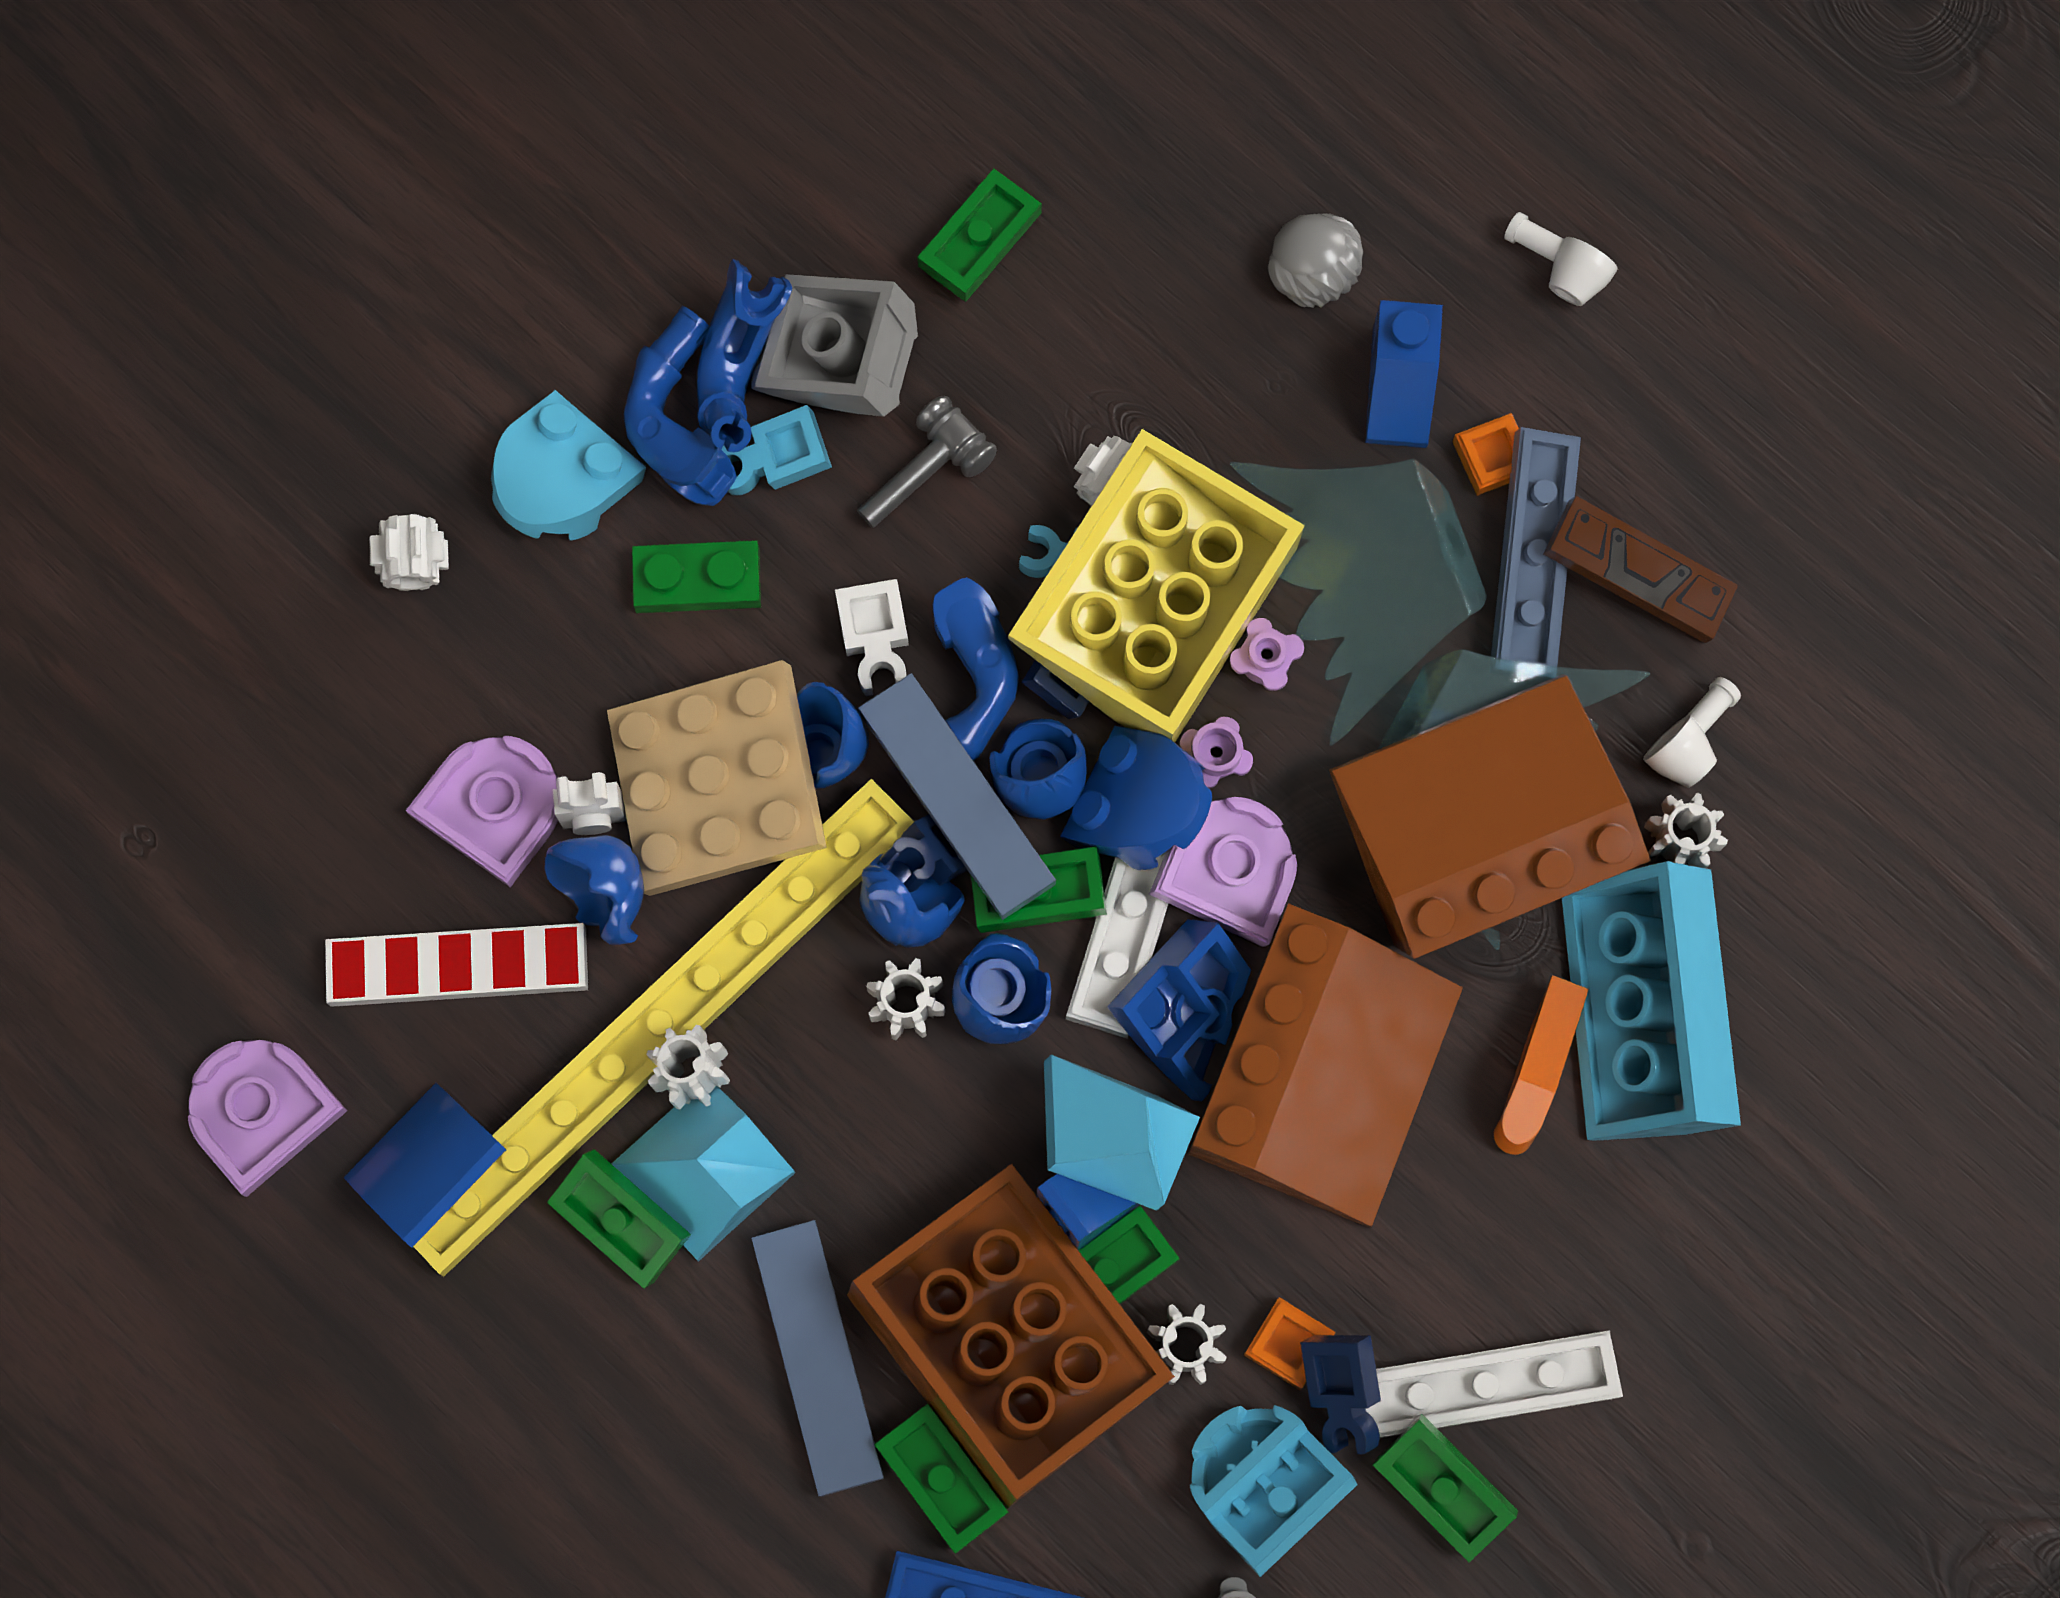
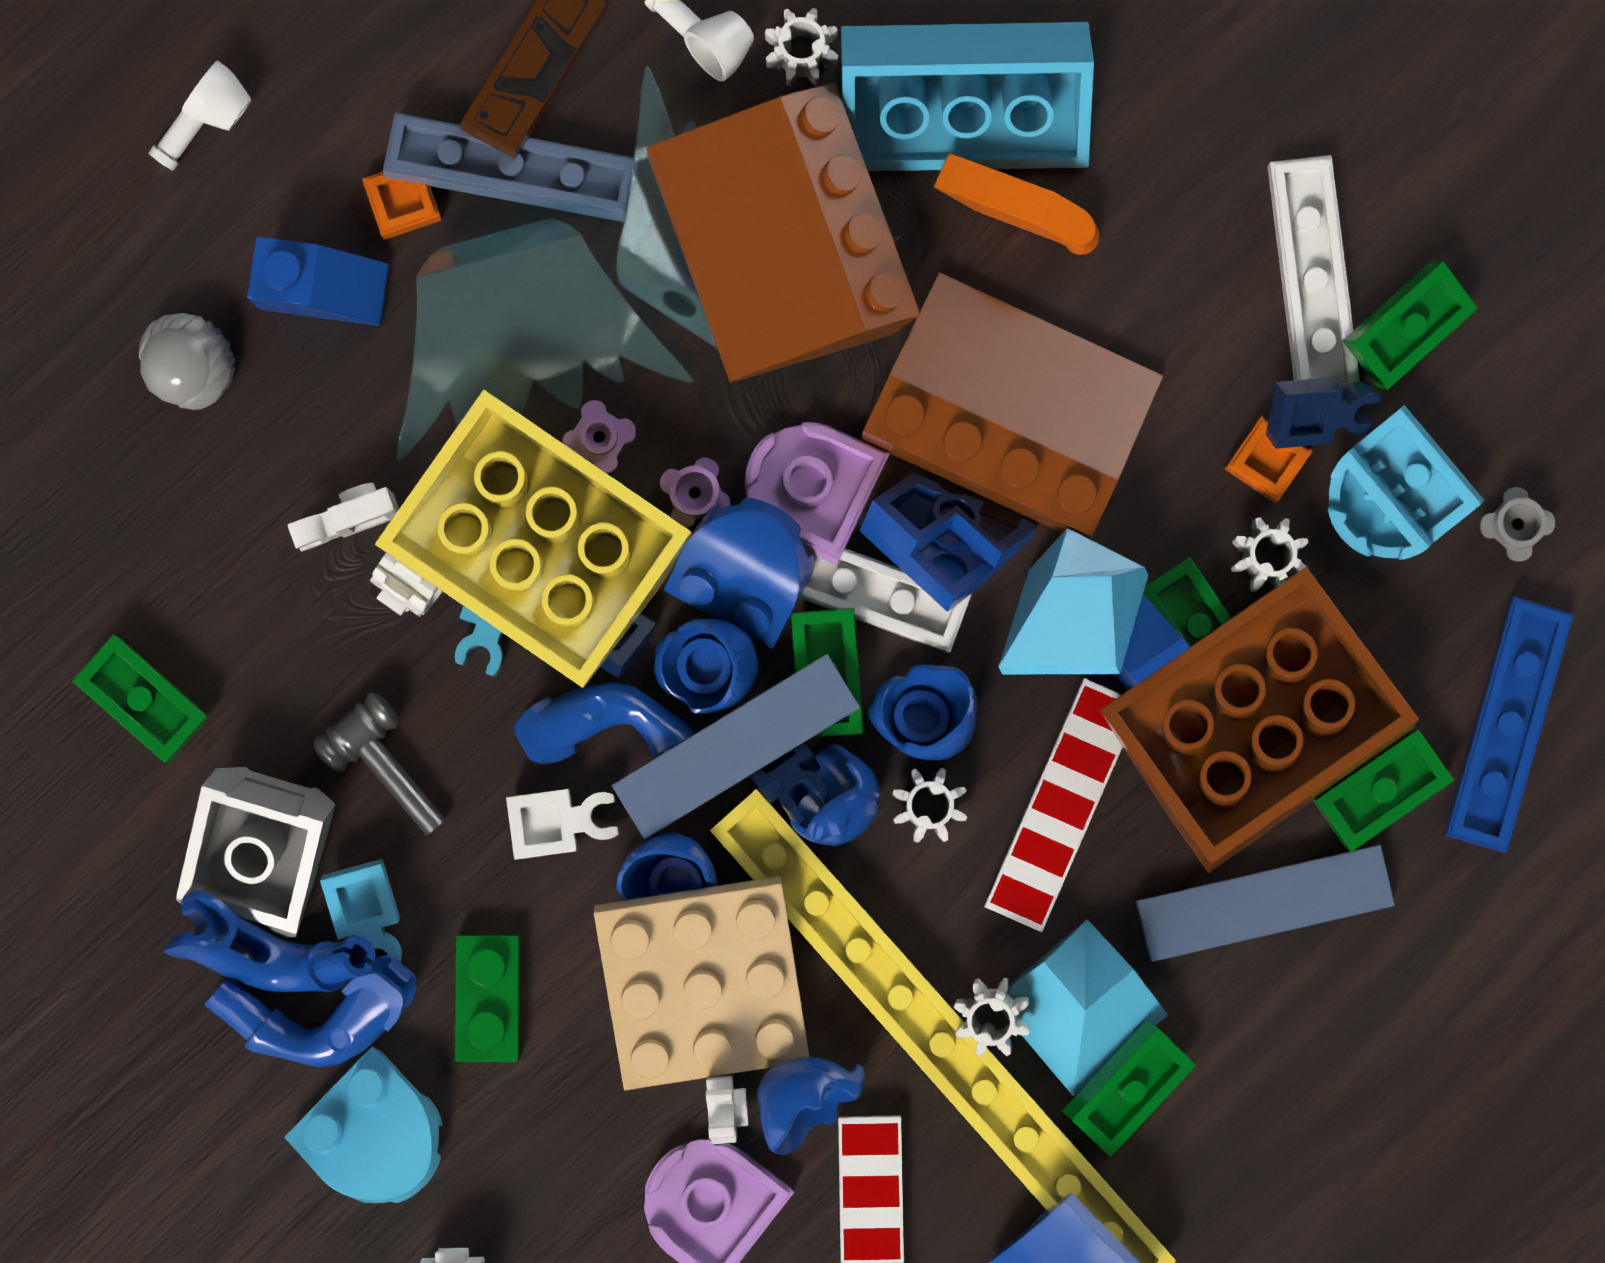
camera: 85 degrees left, 10 degrees up
(901, 1133) = (1058, 811): none -> tile
(1173, 421) = (359, 510): none -> white plate

